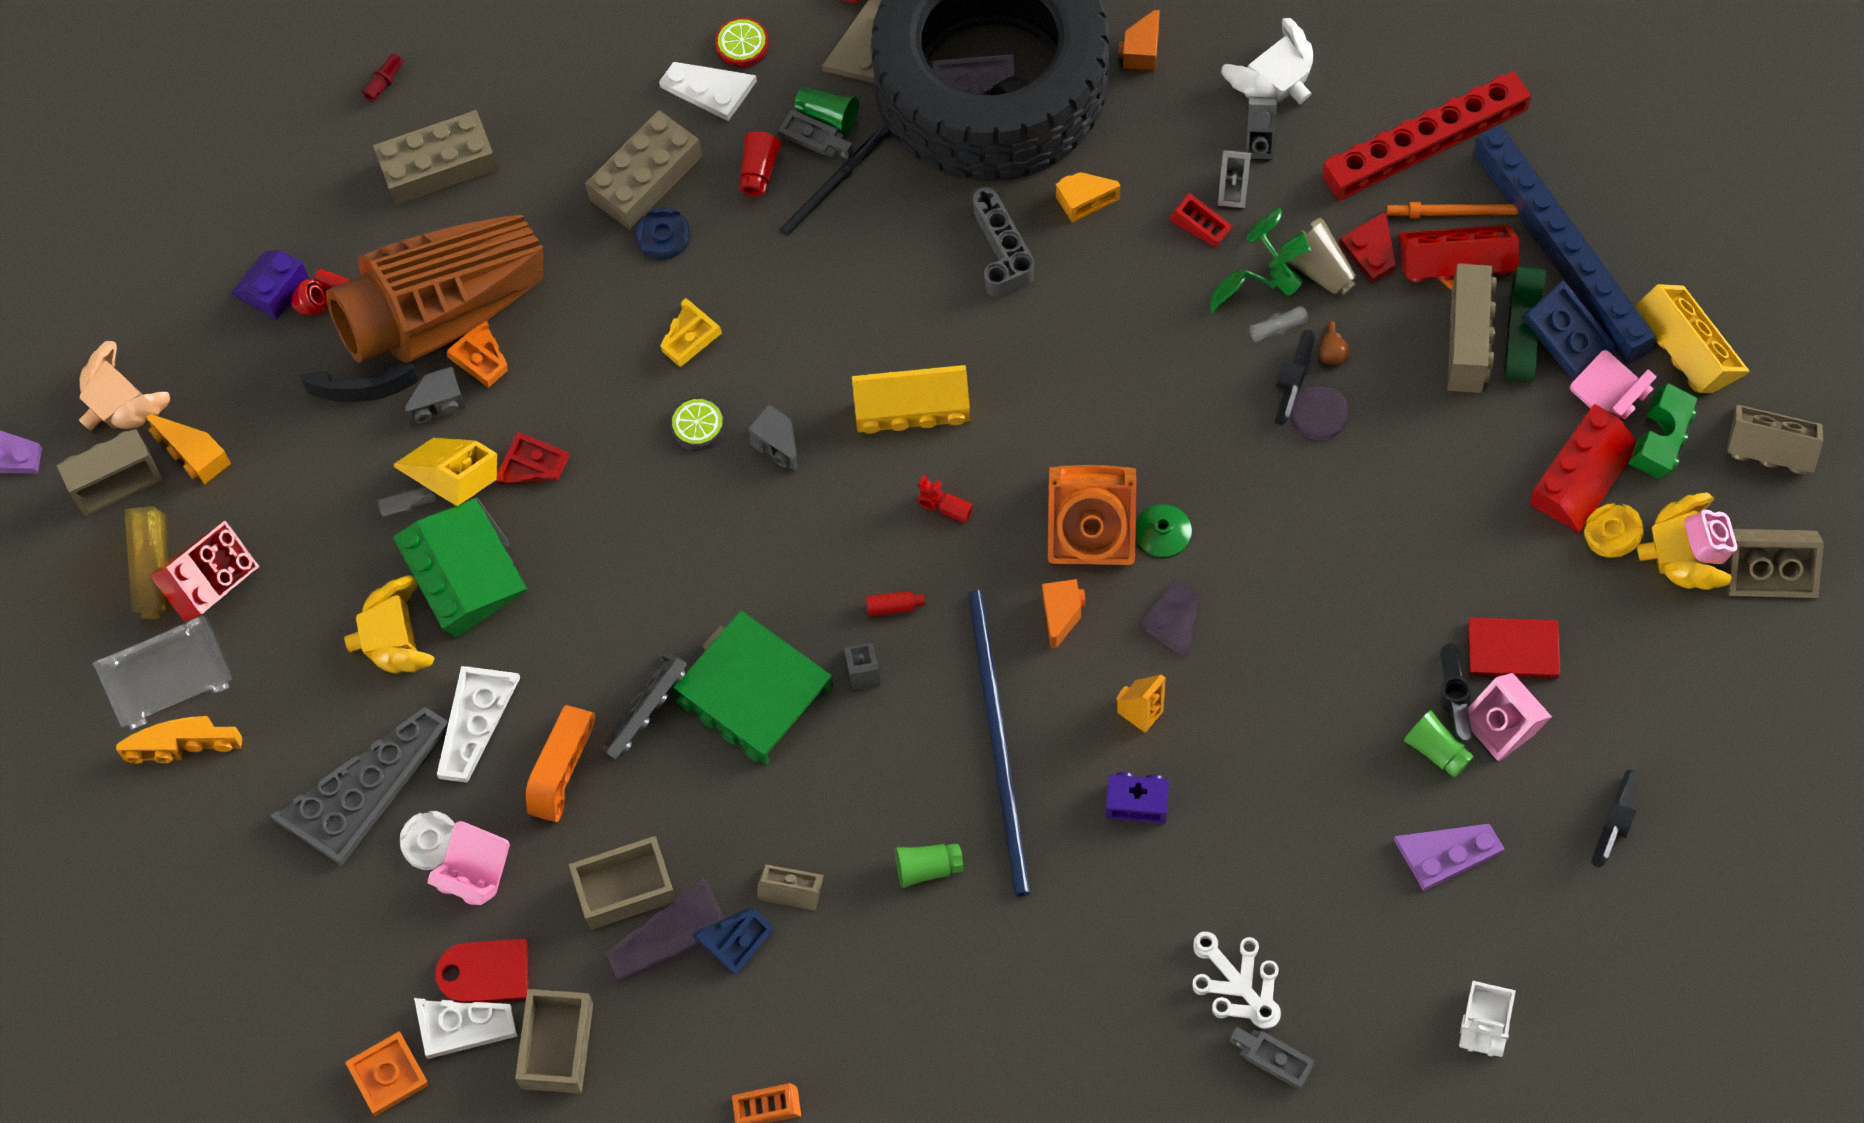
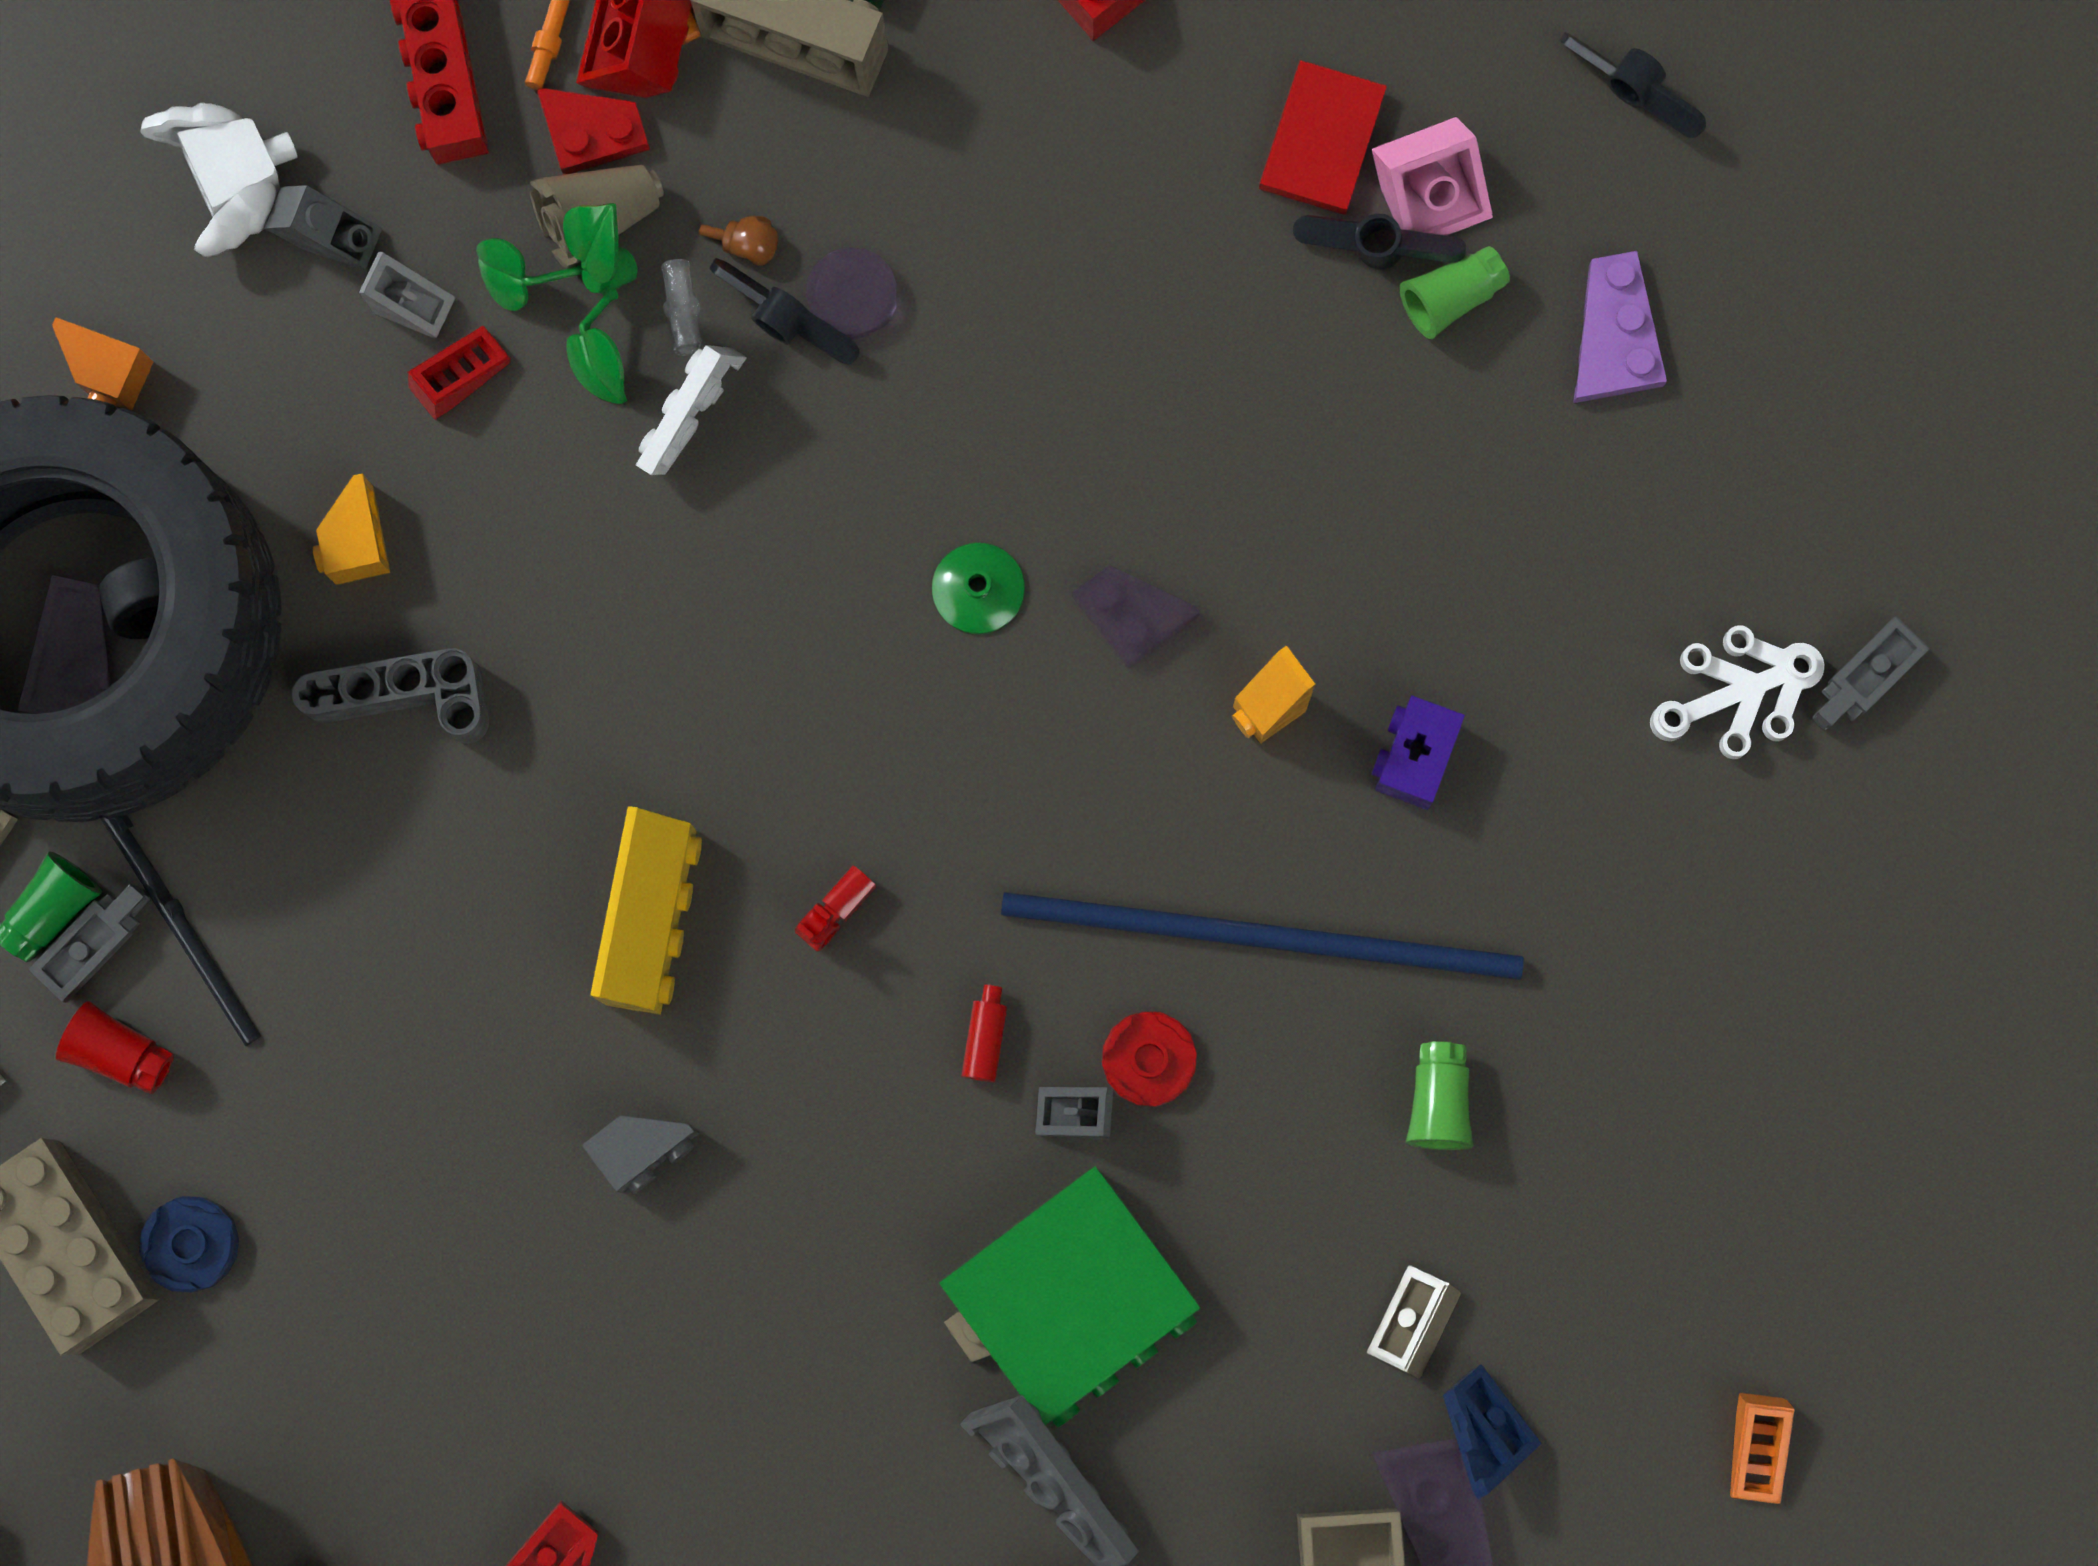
camera: 75 degrees left, 15 degrees up
(689, 334) = (398, 1245): yellow wing -> none
(697, 423) = (566, 1272): tile -> none
(906, 698) = (1149, 1059): none -> red tile
(1062, 608) = (1074, 777): orange slope -> none
(1092, 515) = (926, 681): orange piece -> none
(1213, 338) = (697, 393): none -> white wing
(1487, 1019) = (1888, 358): white piece -> none

